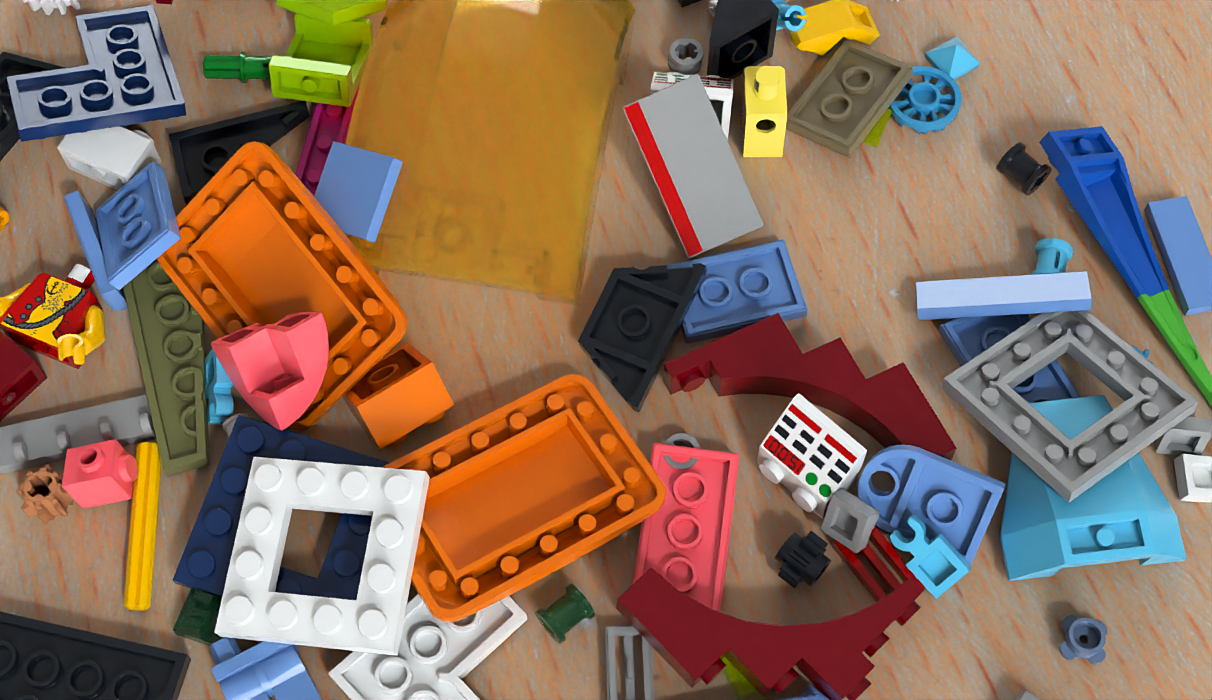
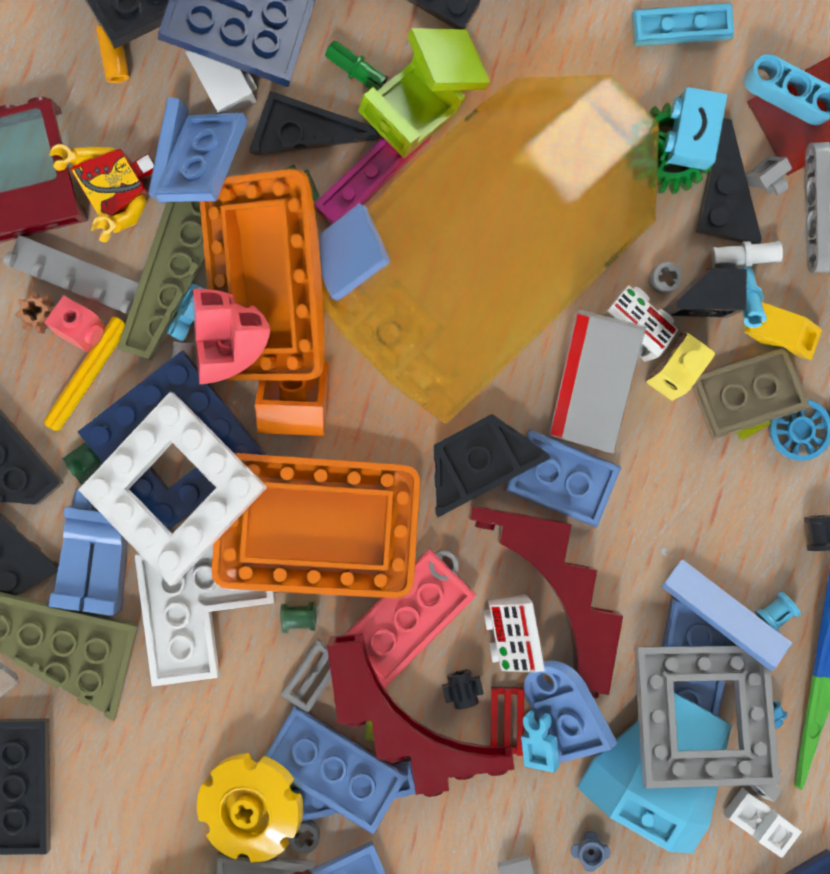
camera: 30 degrees right, 25 degrees up
(849, 520) = (507, 690): light grey tile -> none

